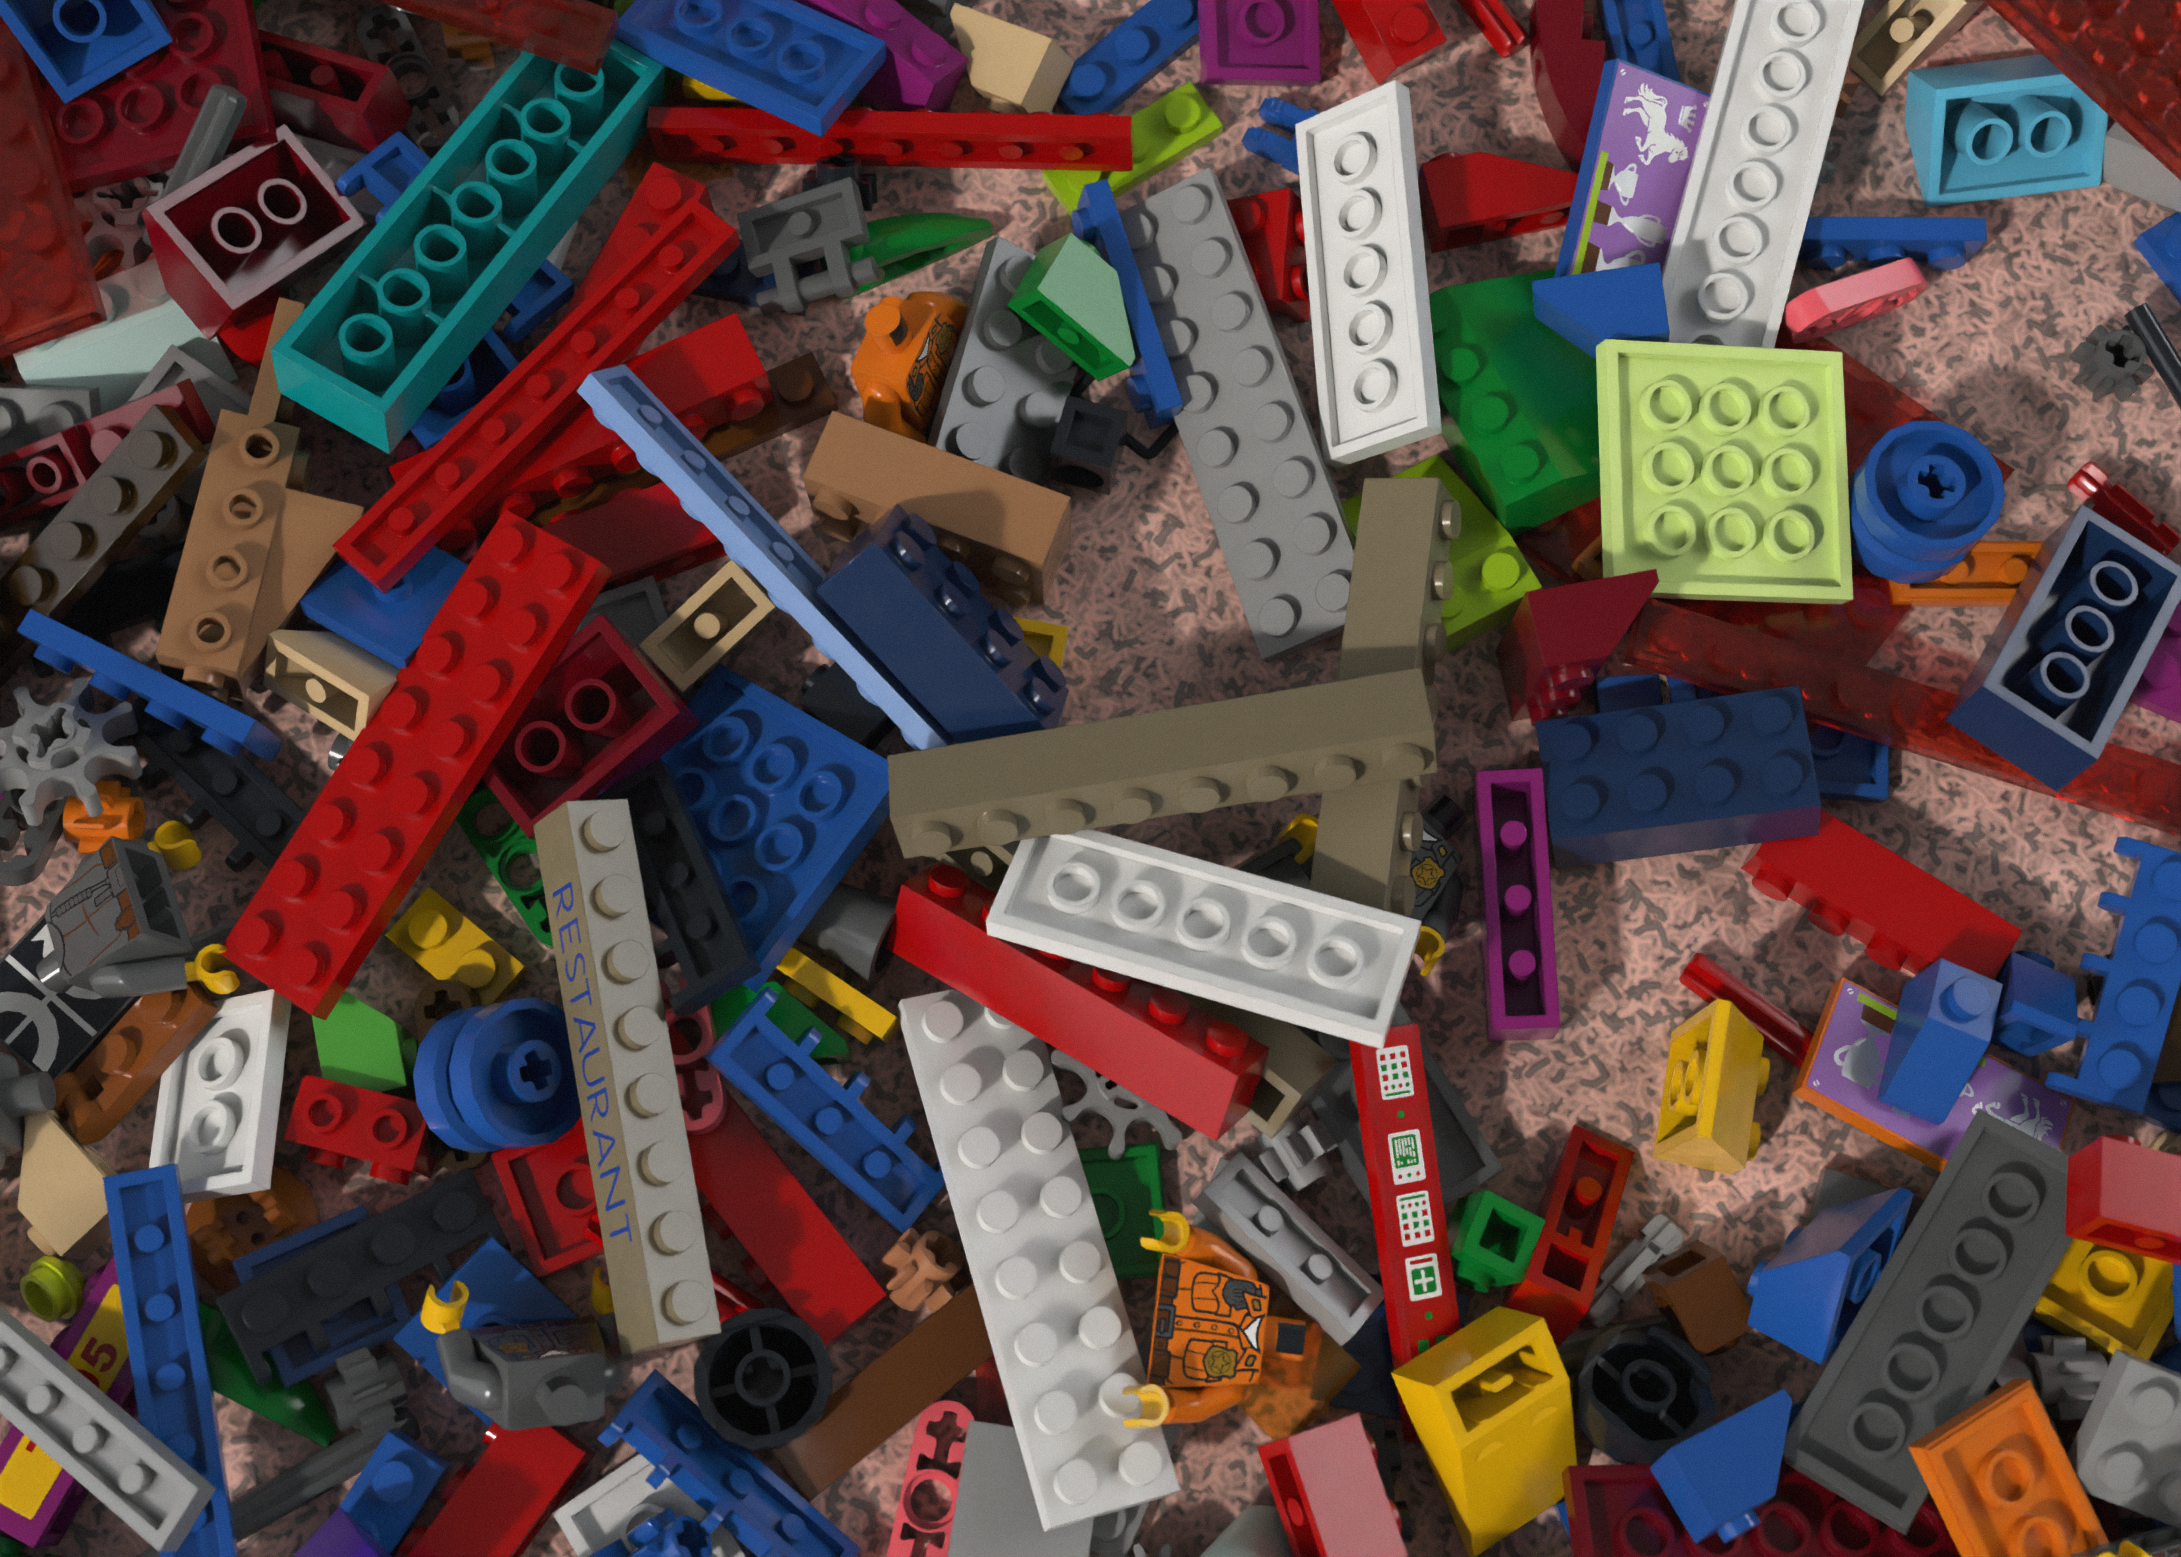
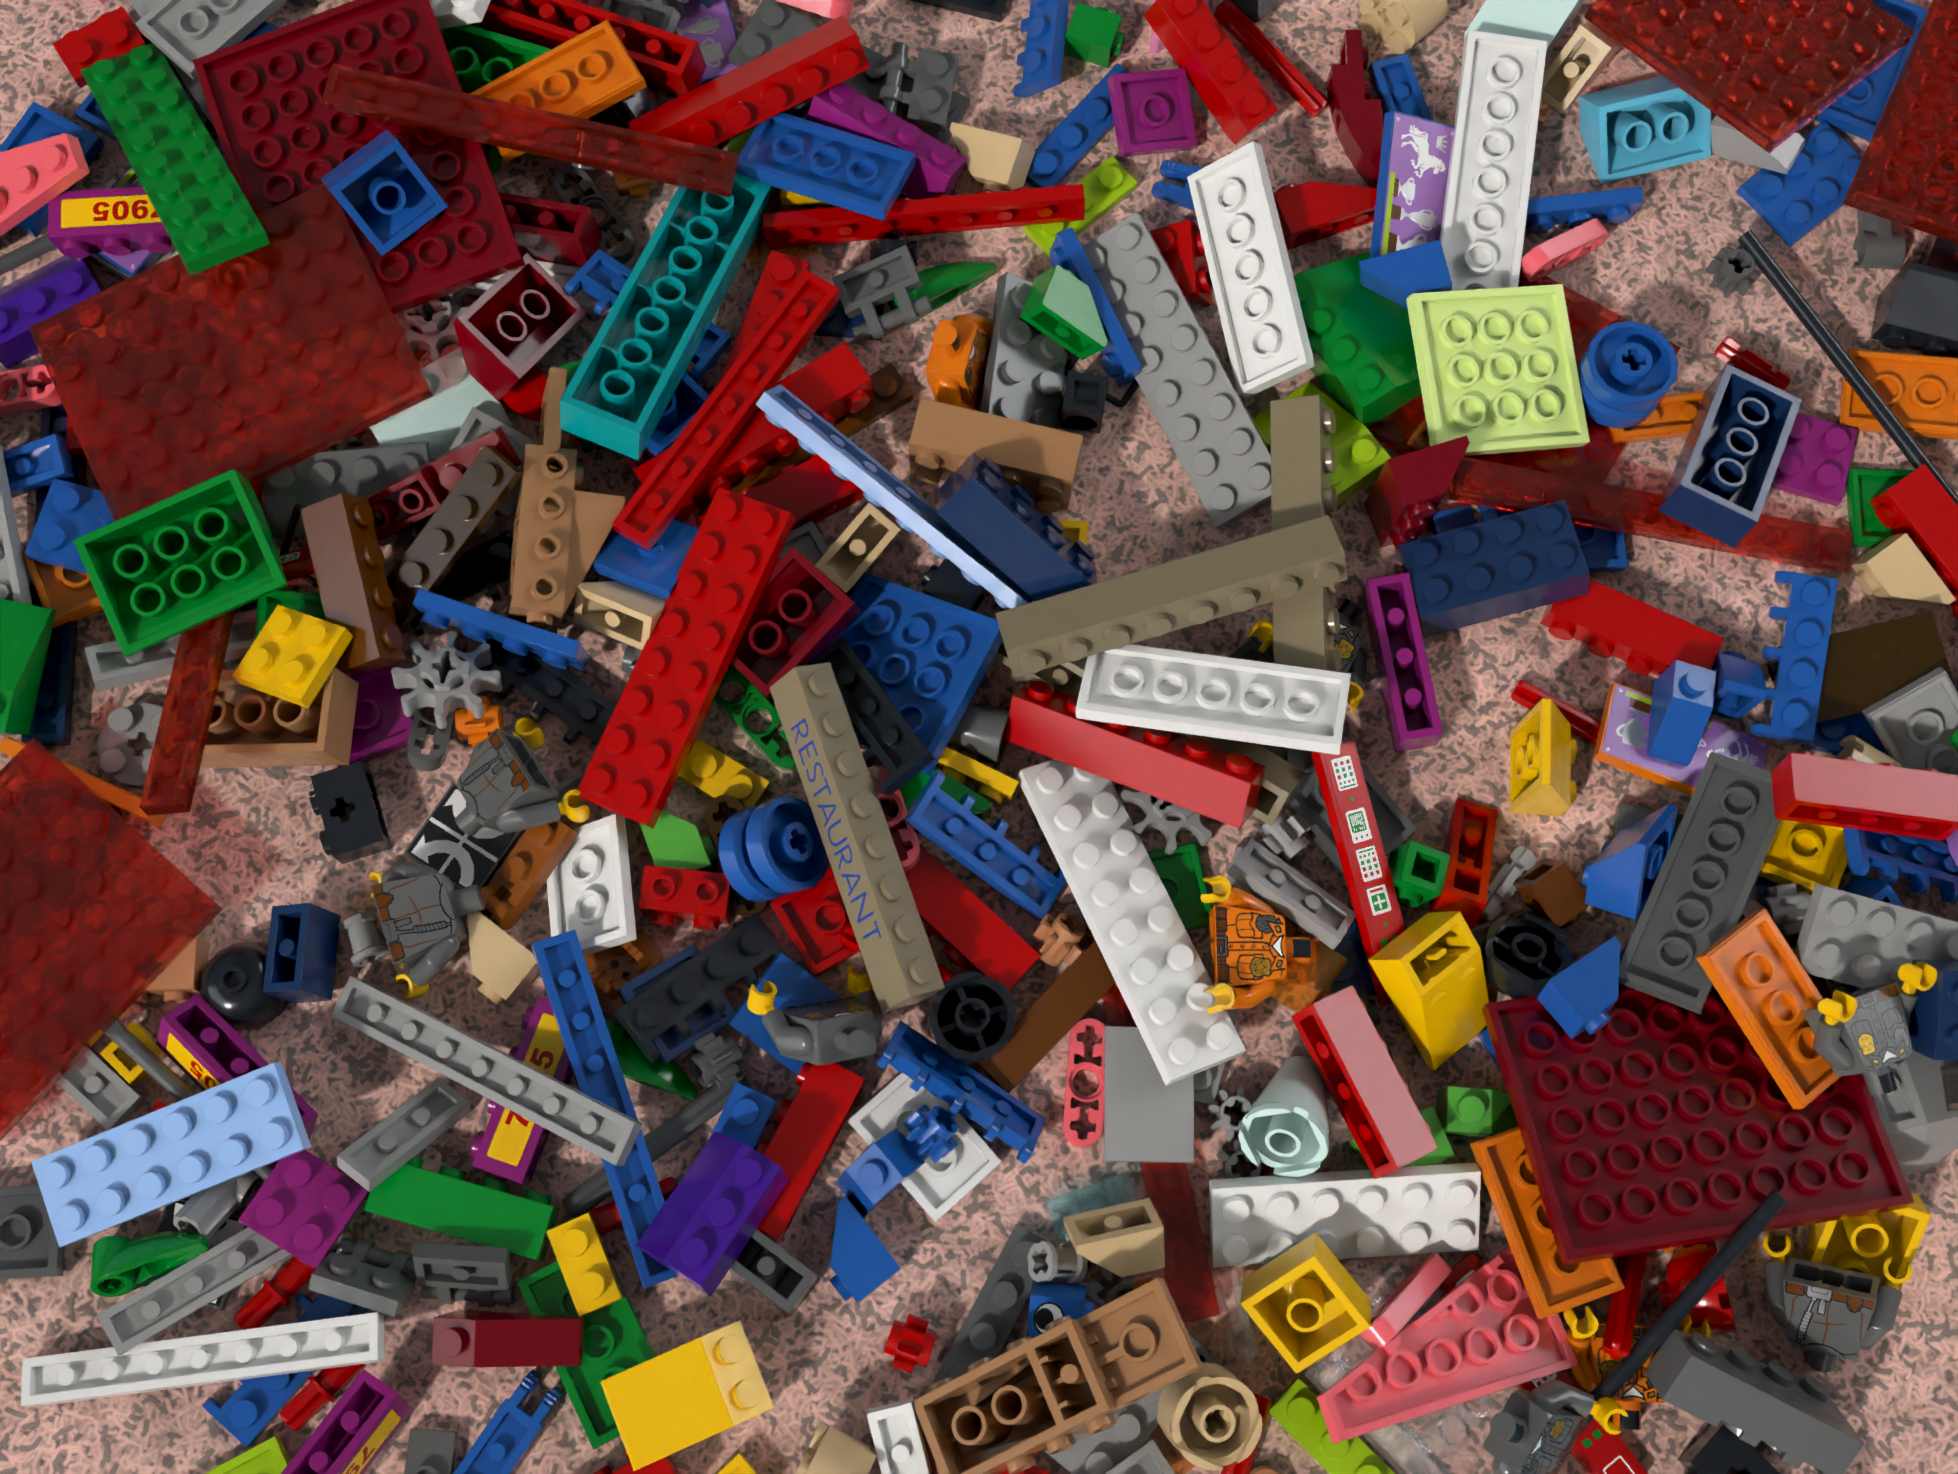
camera: 10 degrees left, 0 degrees up
(53, 1289) = (499, 1024): neon yellow plate -> none
(207, 138) = (479, 279): dark grey axle -> none

